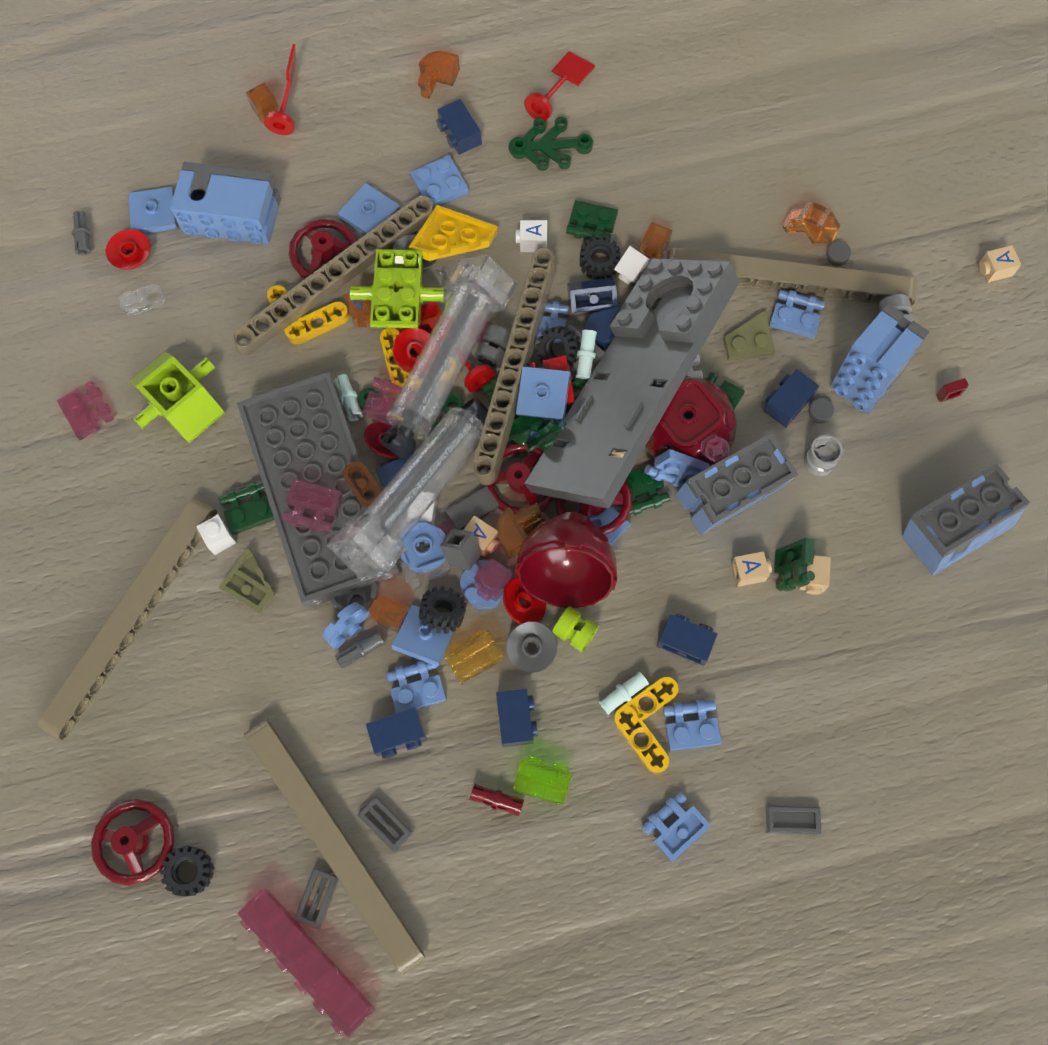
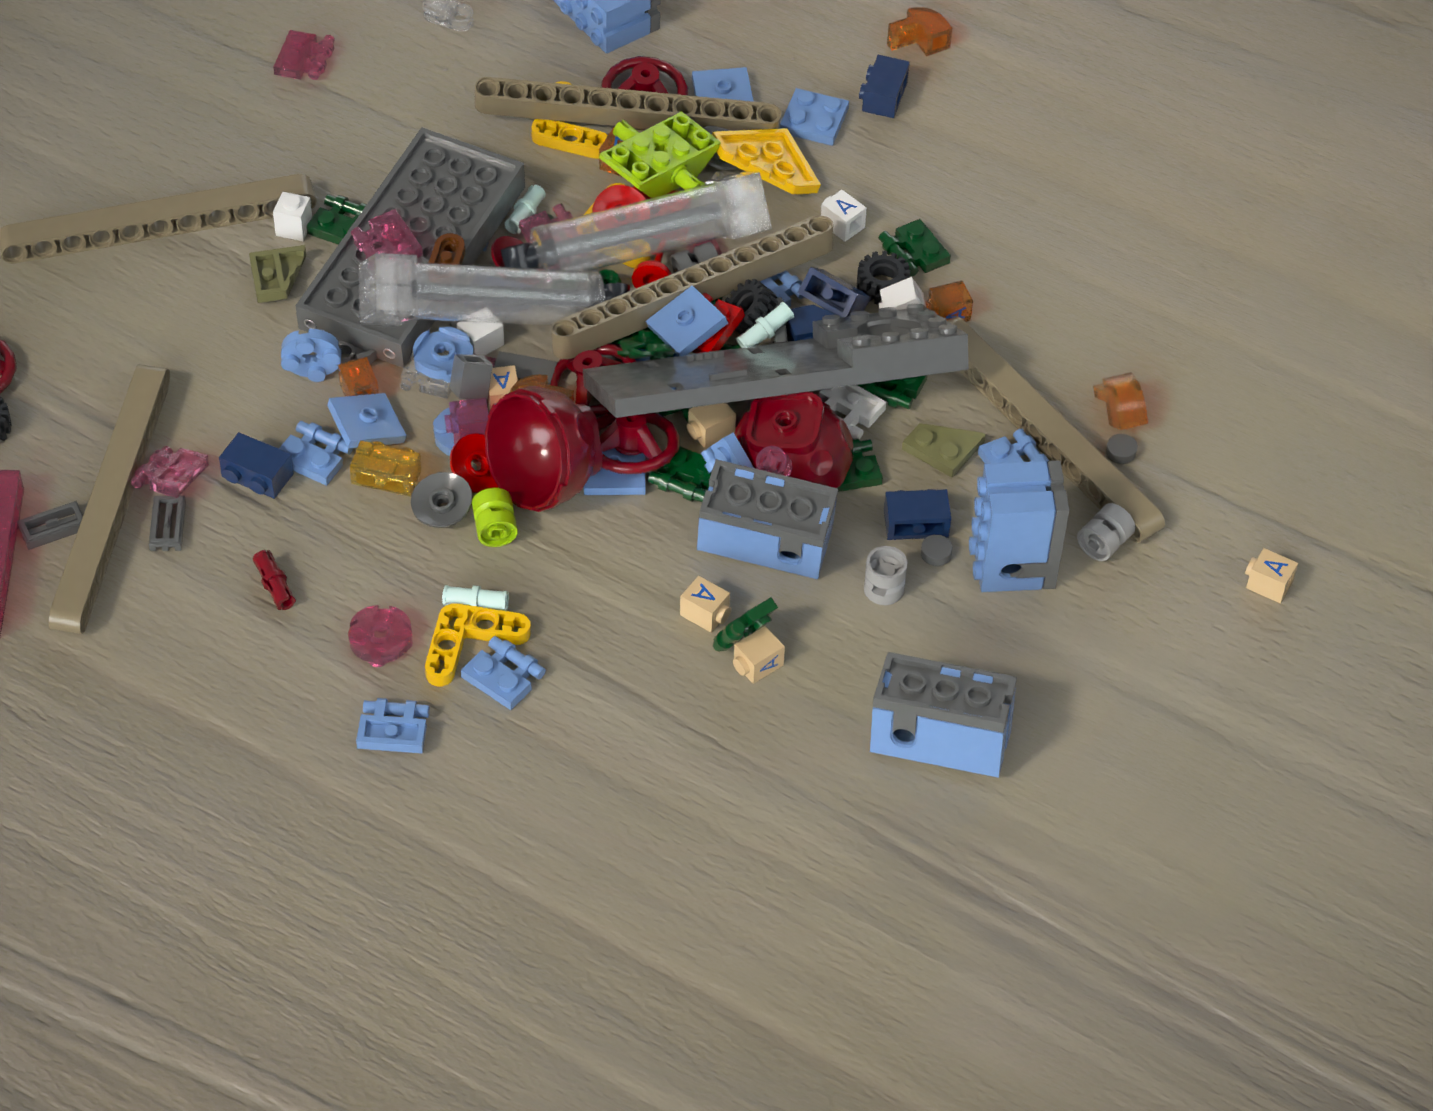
camera: 40 degrees right, 20 degrees down
(177, 396) = (386, 99): lime slope -> none
(357, 788) = (170, 472): none -> clear pink plate
(359, 650) = (302, 389): dark grey axle -> none
(441, 620) = (402, 410): black tyre -> none
(515, 719) = (362, 536): dark blue brick -> none
(542, 780) = (326, 597): clear neon green brick -> none
(548, 145) = (925, 144): dark green plant -> none
(569, 68) = (1052, 120): red piece -> none
(610, 764) = (385, 649): none -> clear pink plate
(687, 639) = (580, 606): dark blue brick -> none
(793, 820) = (498, 812): dark grey tile -> none
(952, 390) = (1083, 630): dark red tile -> none

